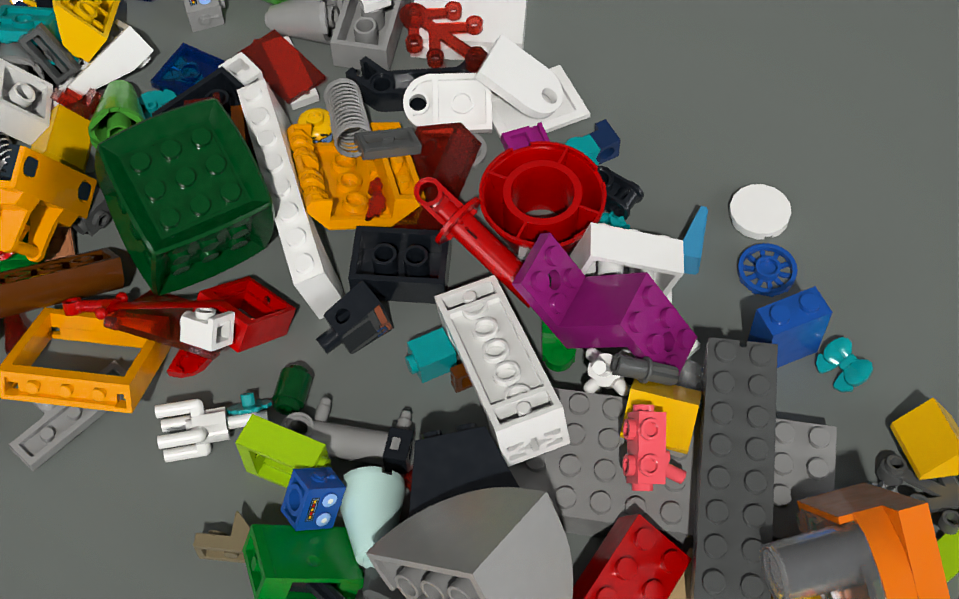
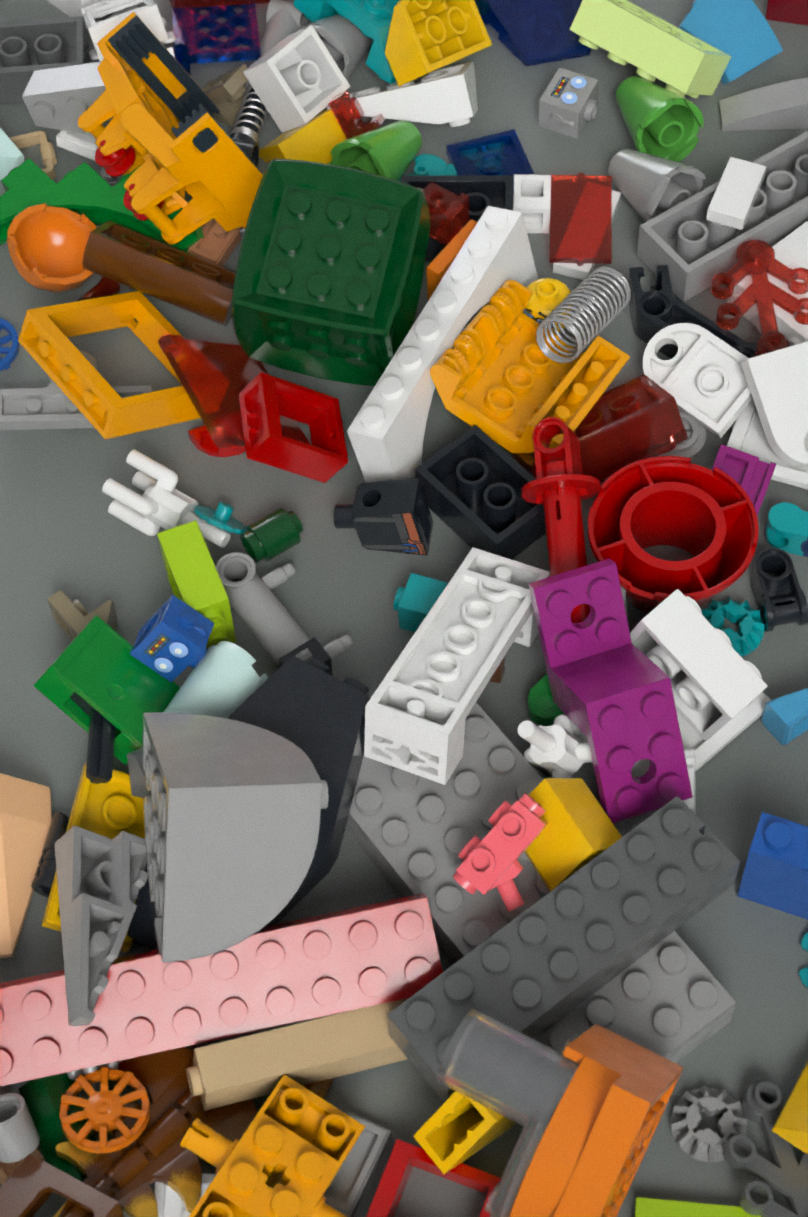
camera: 45 degrees right, 0 degrees up
(52, 50) = (369, 51): dark grey tile -> none
(103, 307) = (176, 325): red sword -> none
(207, 328) = (237, 404): white brick -> none
(377, 202) = (517, 416): clear red piece -> none
(387, 143) = (586, 366): dark grey tile -> none
(644, 370) = (583, 775): dark grey axle -> none

